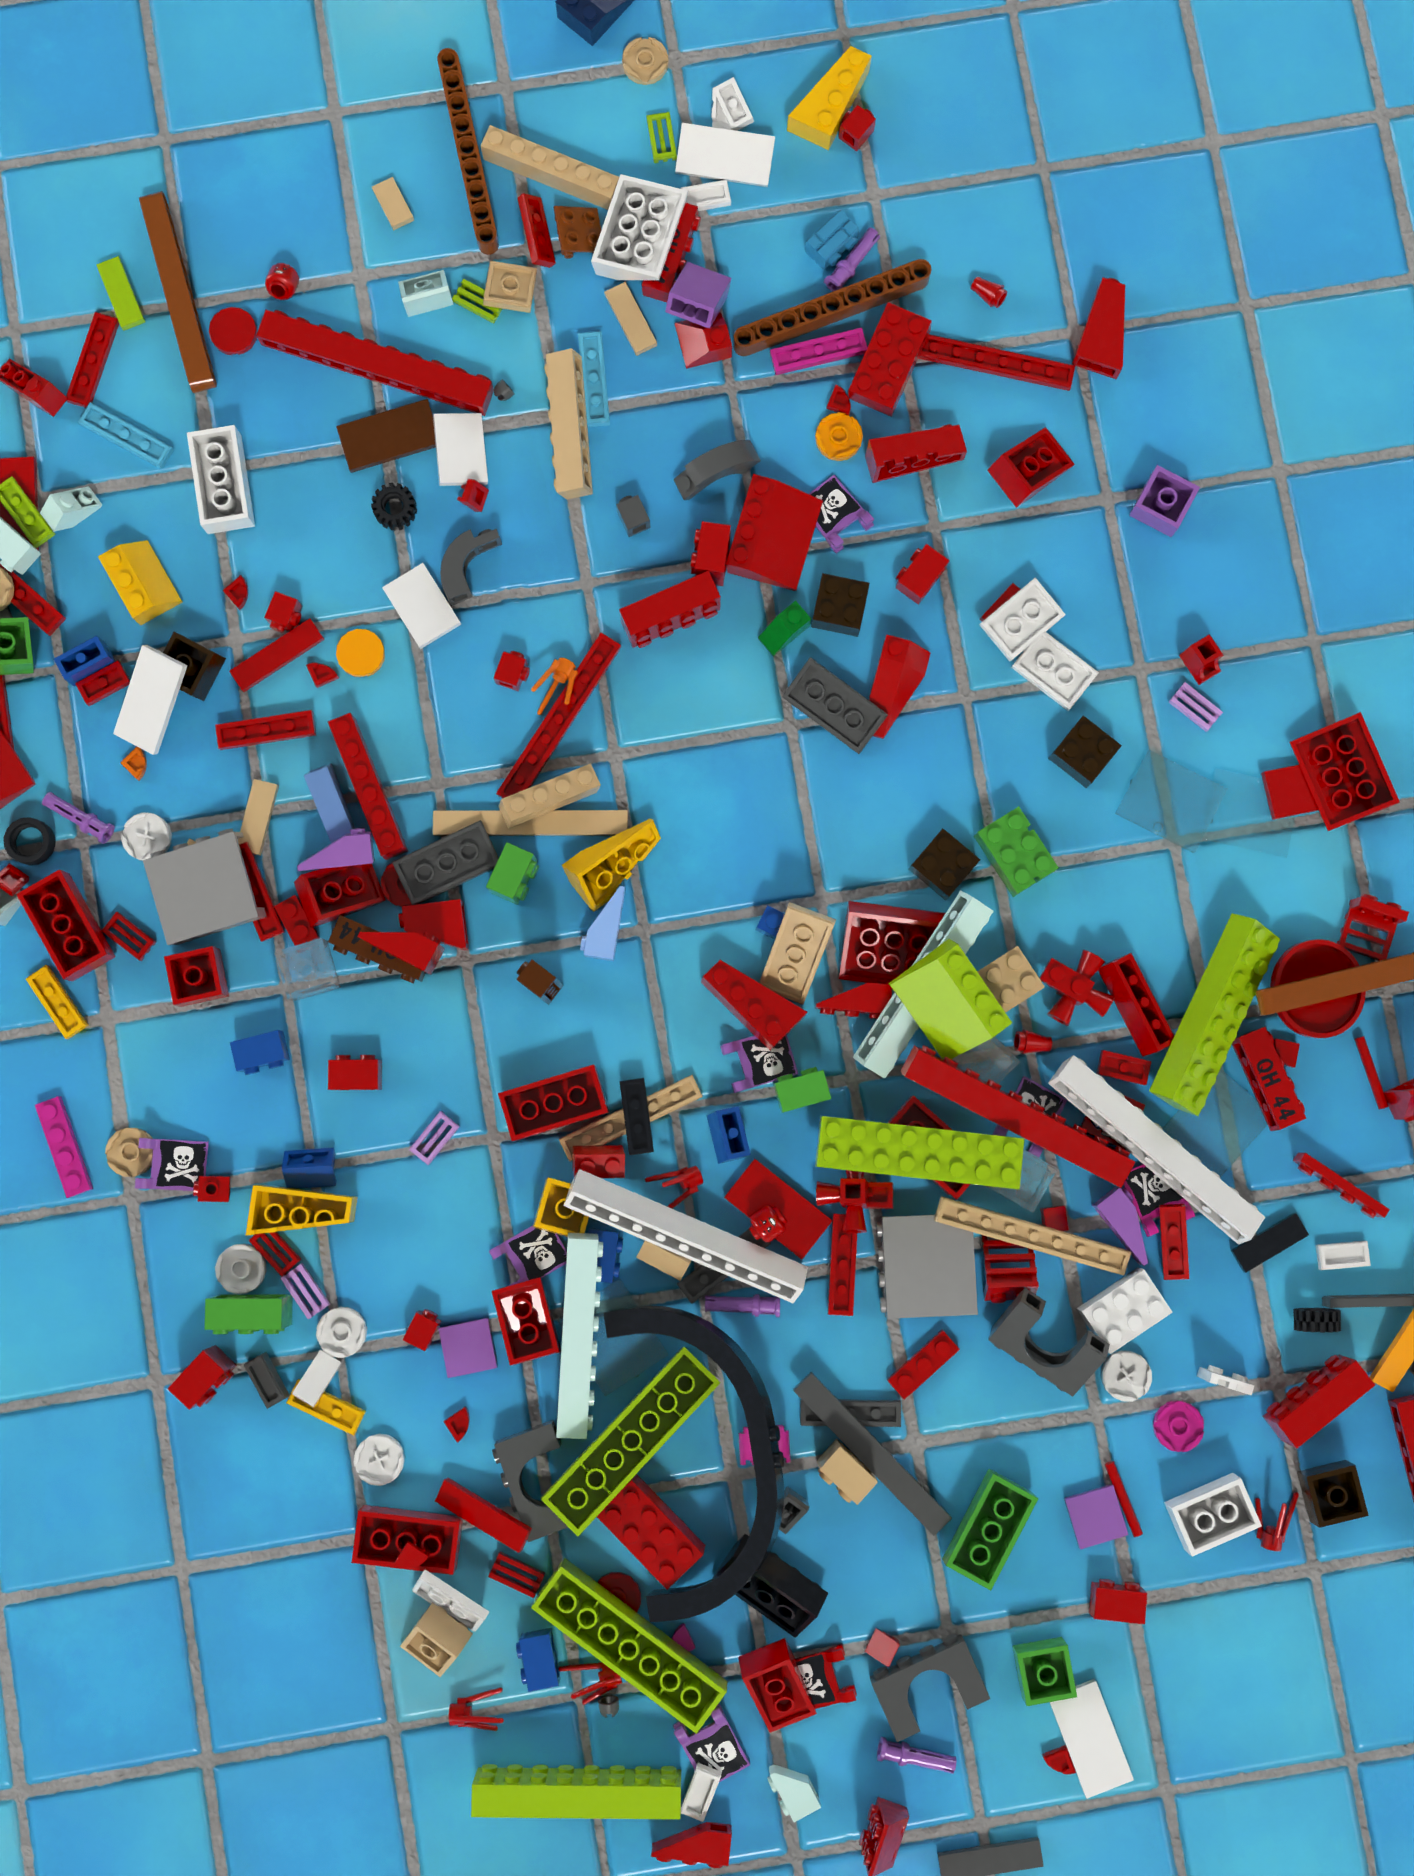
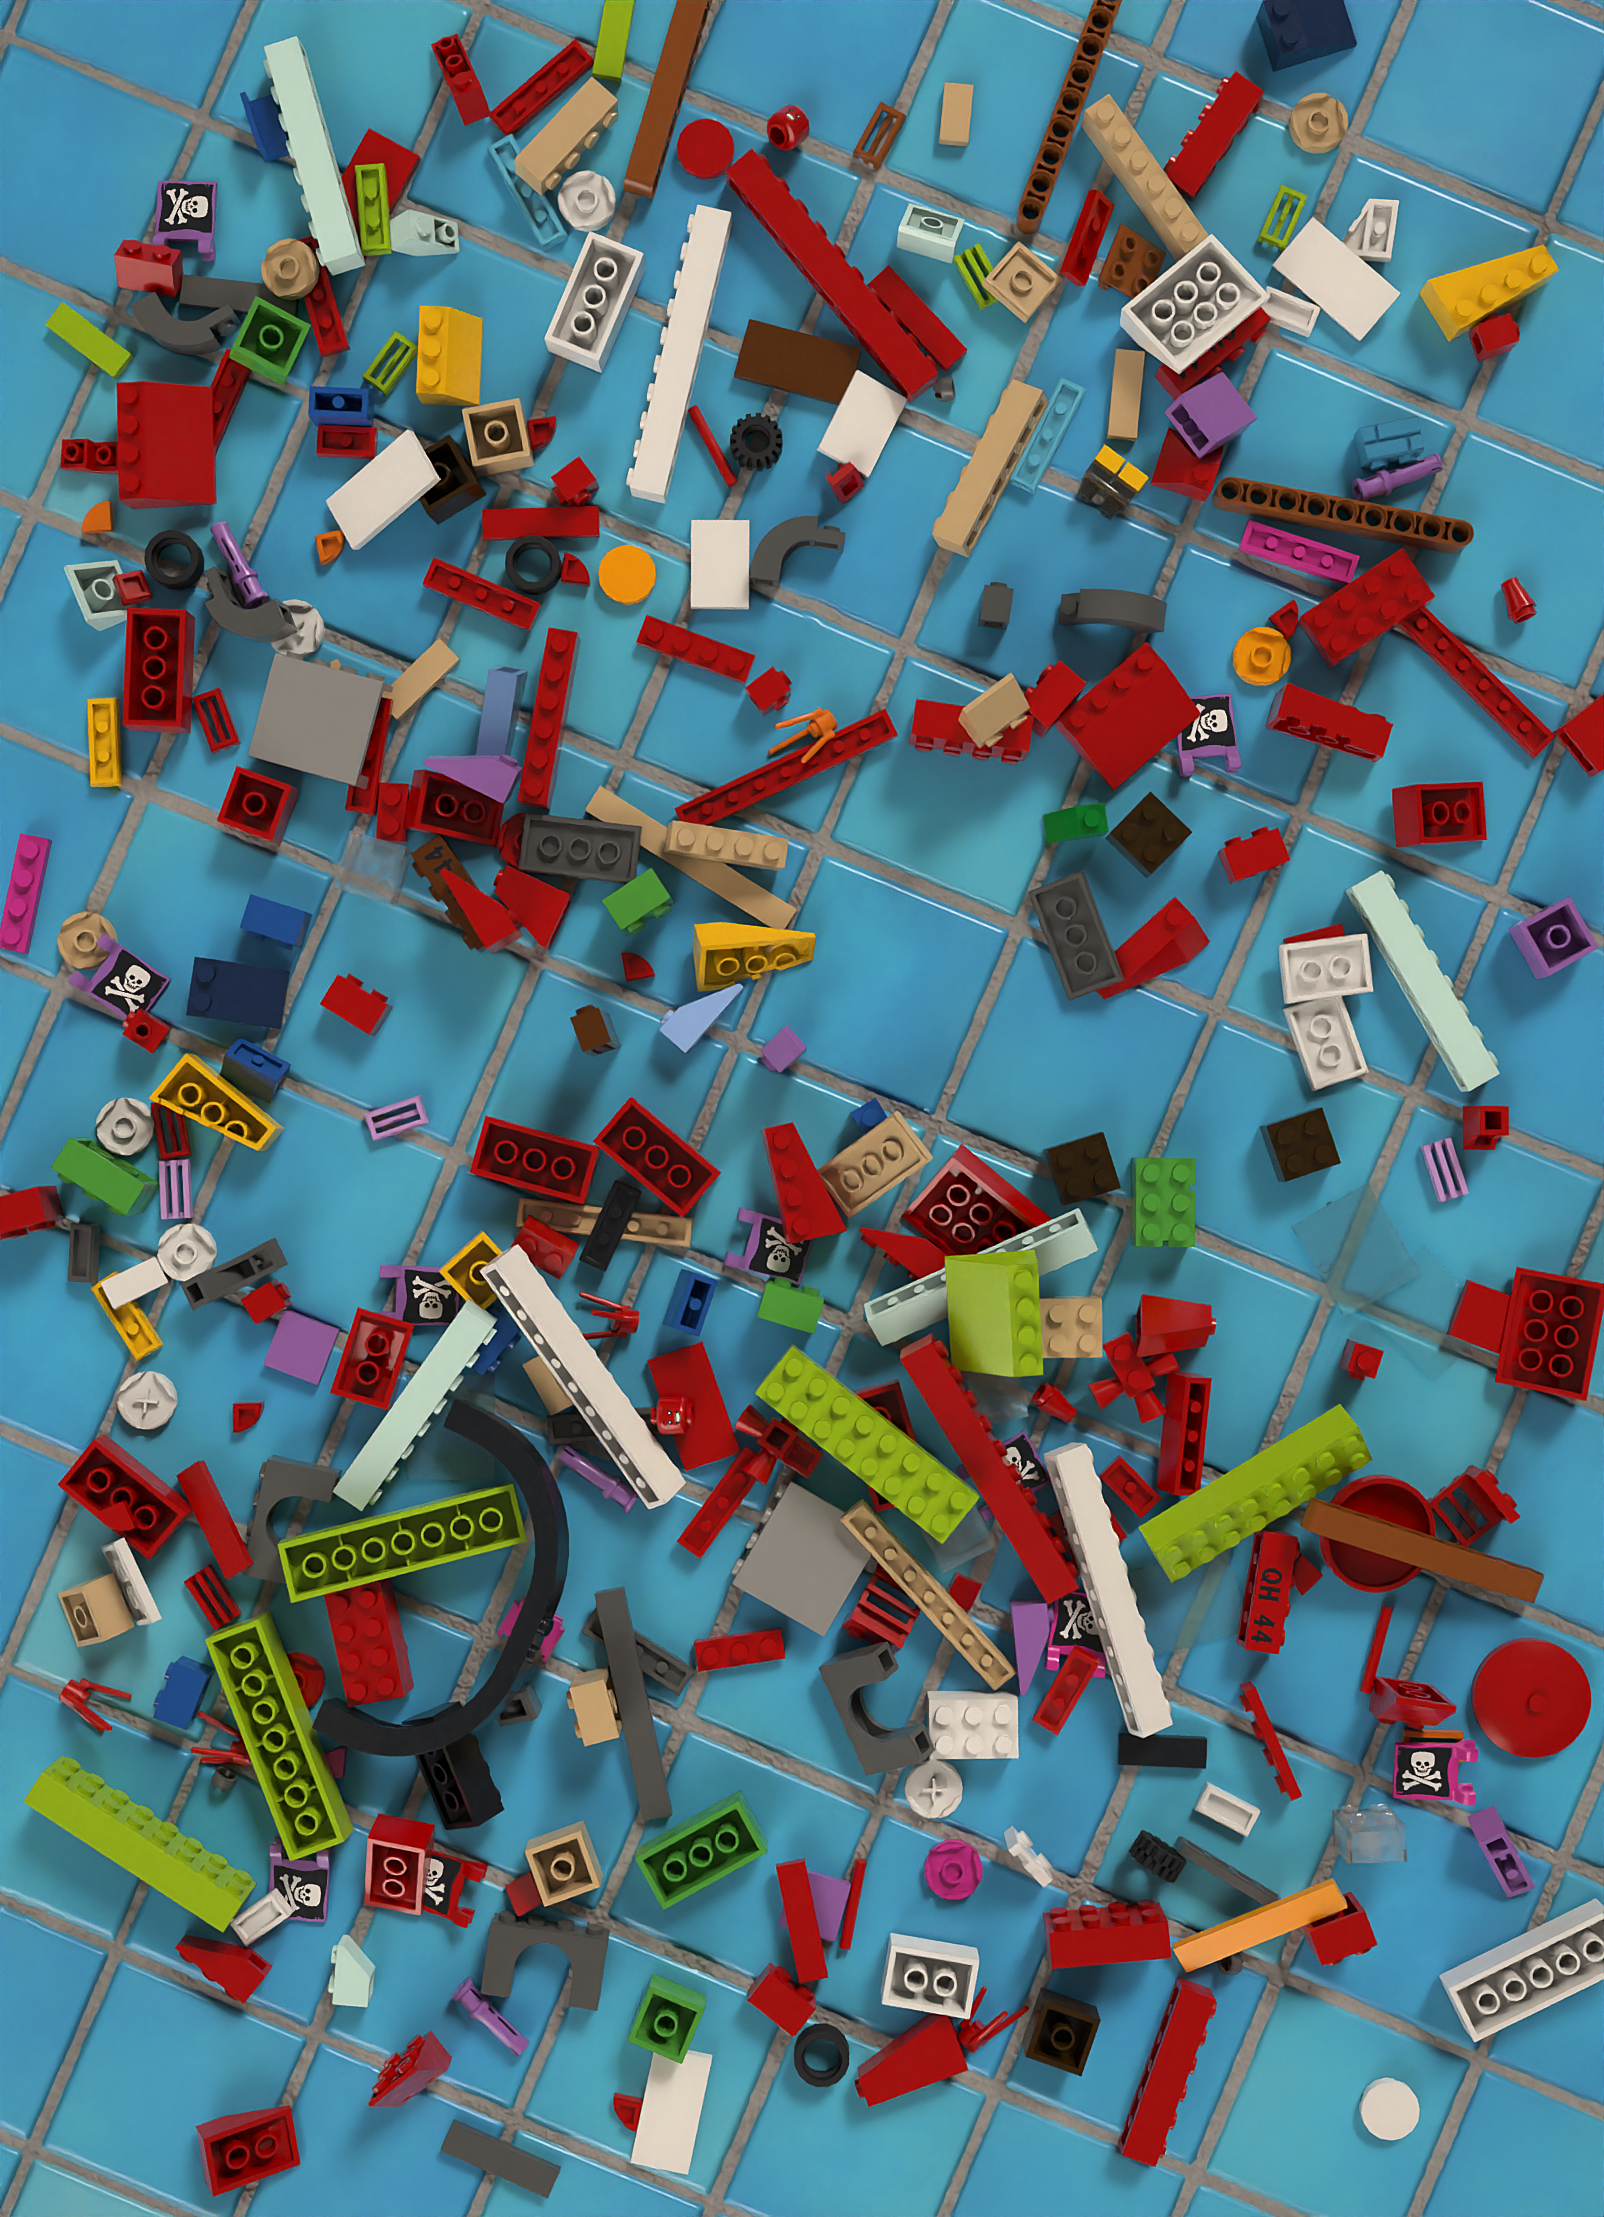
camera: 40 degrees right, 5 degrees up
(100, 630) = (400, 369): none -> lime tile
(118, 848) = (262, 624): none -> dark grey arch
(130, 380) = (567, 136): none -> tan brick
(171, 416) = (587, 201): none -> white tile
(209, 613) = (498, 437): none -> tan brick
(263, 1120) = (237, 993): none -> dark blue slope
(276, 673) = (517, 549): none -> black tyre
(303, 479) = (681, 353): none -> white brick
(350, 268) = (868, 156): none -> dark orange tile
(365, 528) = (712, 446): none -> red bar
(387, 1324) = (234, 1274): none -> dark grey arch
(441, 674) = (695, 649): none -> red plate
(454, 355) = (918, 319): none -> red tile
(539, 922) = (636, 967): none -> red tile
(580, 112) = (1213, 135): none -> red wedge
(639, 1045) = (657, 1156): none -> red brick
(667, 388) = (1116, 493): none -> clear smoke hips
(679, 582) = (994, 712): none -> tan slope
(681, 912) = (782, 1050): none -> medium lavender slope
(896, 1604) = (564, 1863): none -> tan brick
(1078, 934) = (1171, 1325): none -> red slope
(1095, 587) = (1422, 981): none -> light aqua brick
(1095, 1534) = (802, 1920): none -> red tile
(1185, 1641) = (813, 2076): none -> black tyre
(1225, 874) = (1360, 1360): none -> red brick
(1241, 1585) = (912, 2060): none -> red slope

